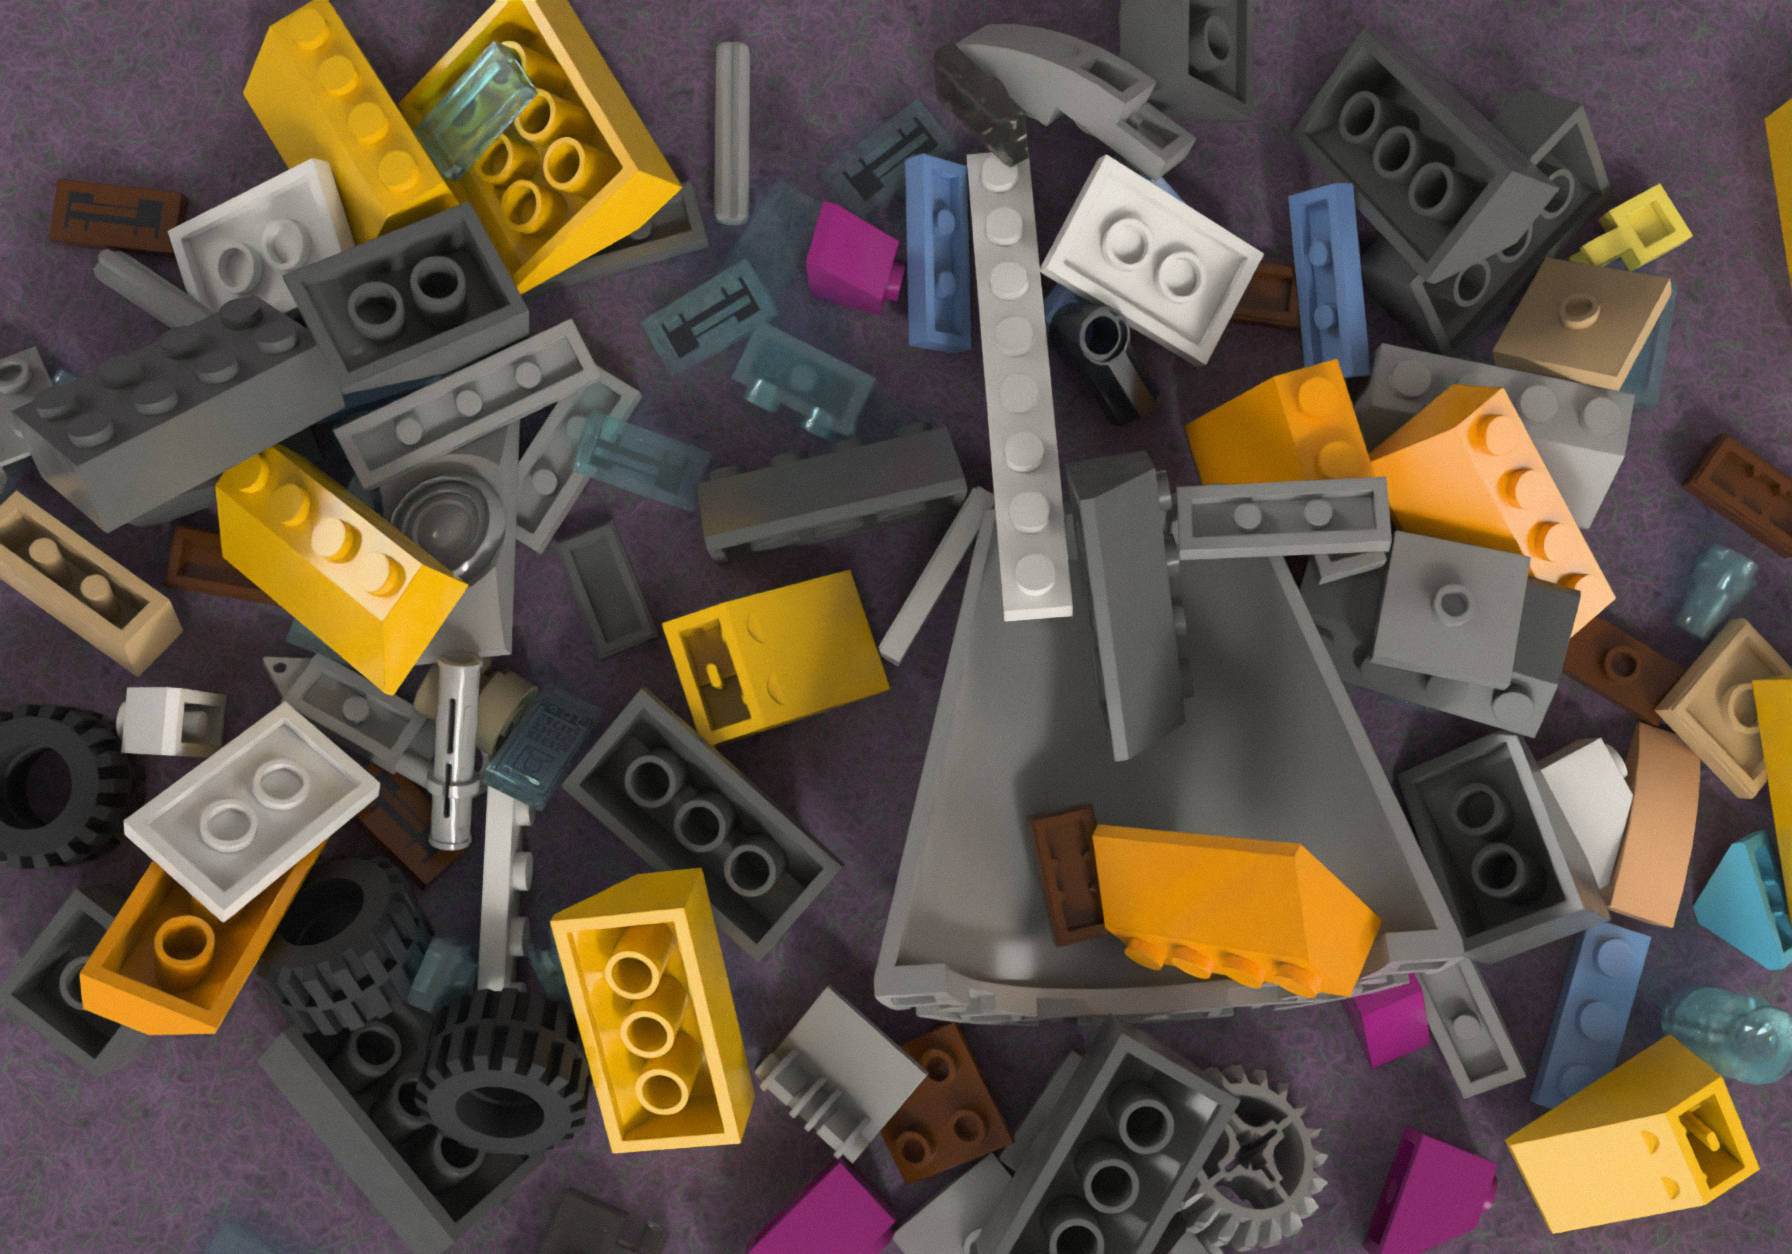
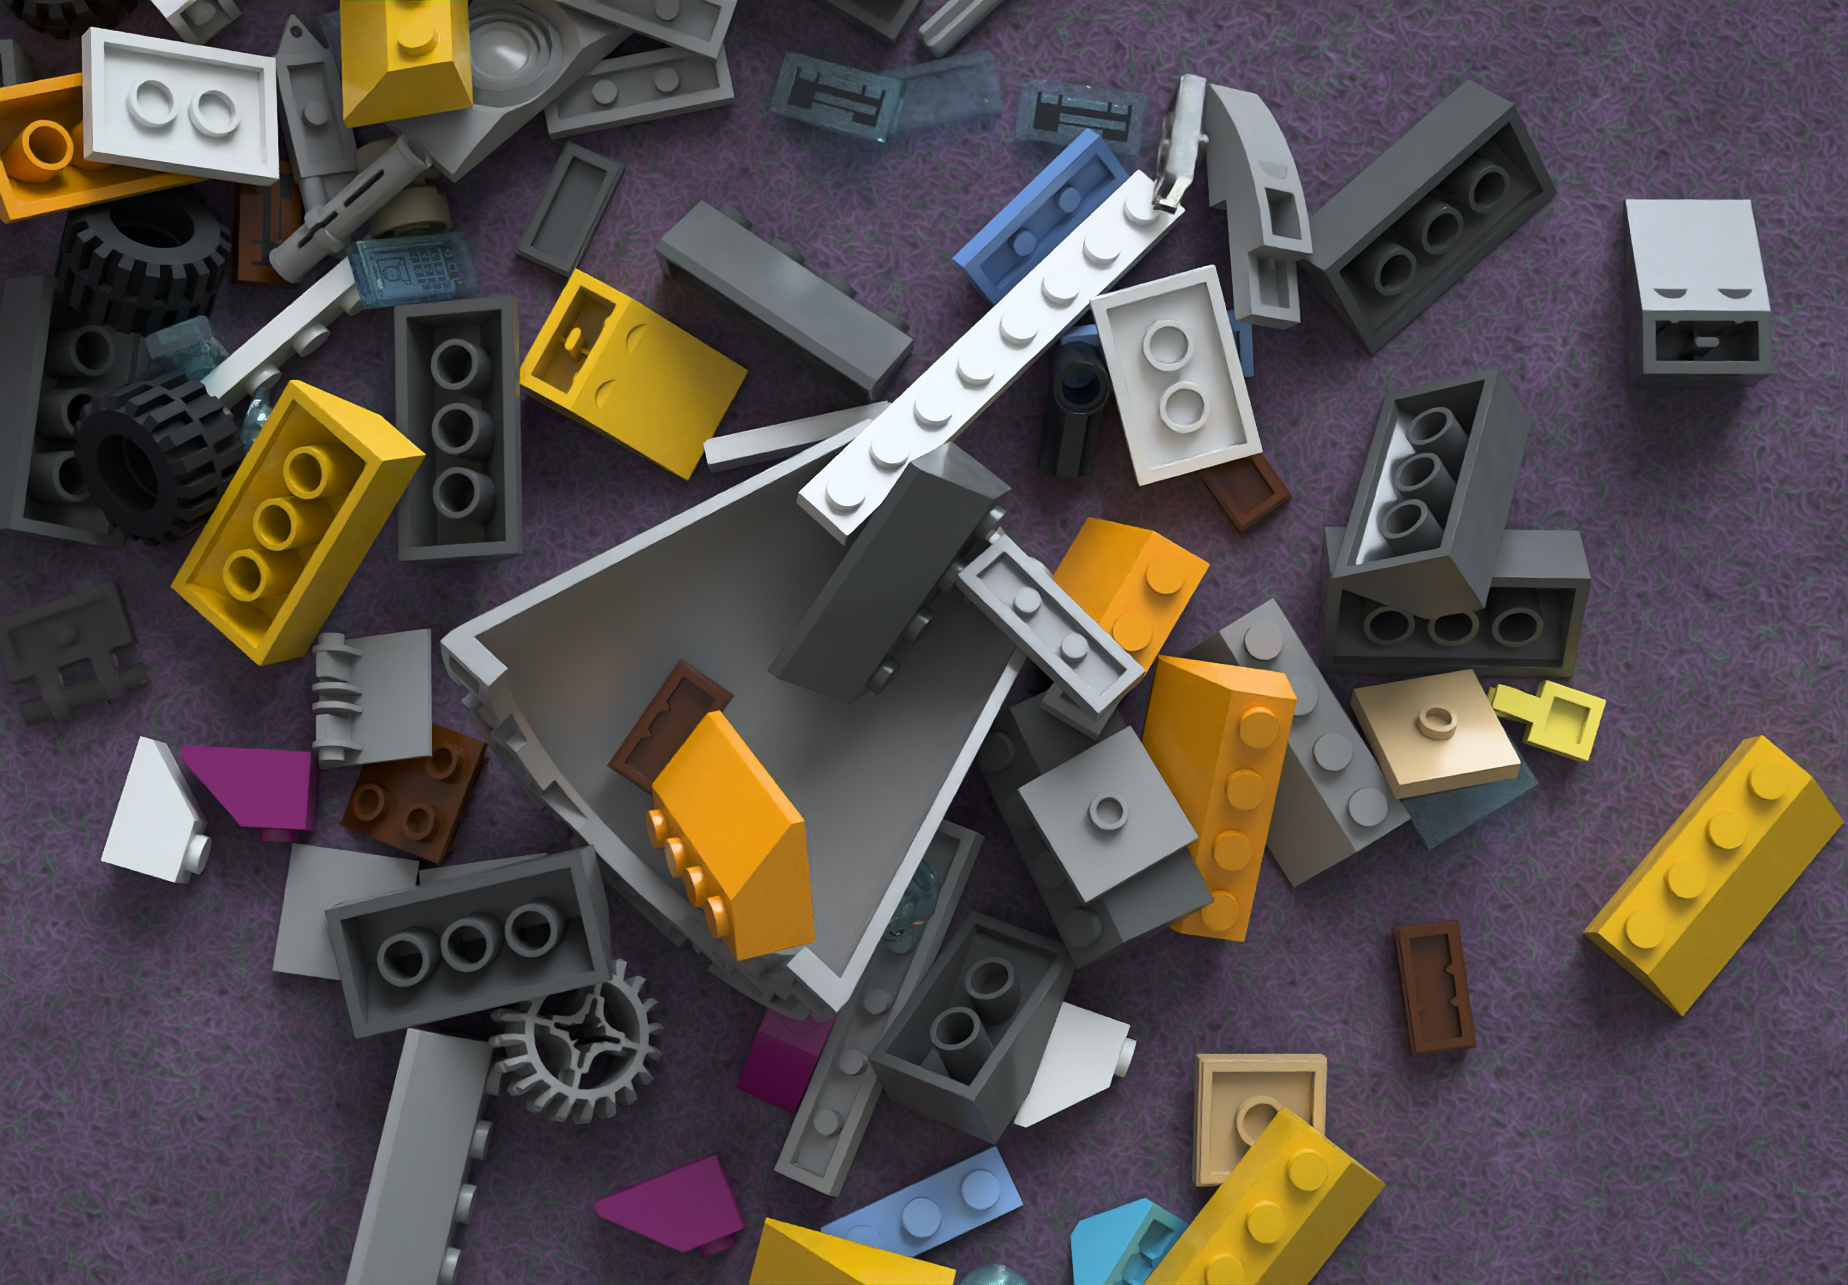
camera: 50 degrees right, 0 degrees up
(640, 461) = (684, 145): clear light blue tile -> none
(805, 379) = (853, 208): clear light blue brick -> none
(853, 262) = (972, 160): magenta slope -> none
(1329, 278) = (1289, 522): medium blue plate -> none
(1621, 669) = (1205, 997): reddish brown plate -> none
(1658, 828) = (1104, 1127): light nougat slope -> none
(1713, 590) = (1329, 1020): clear light blue cone -> none

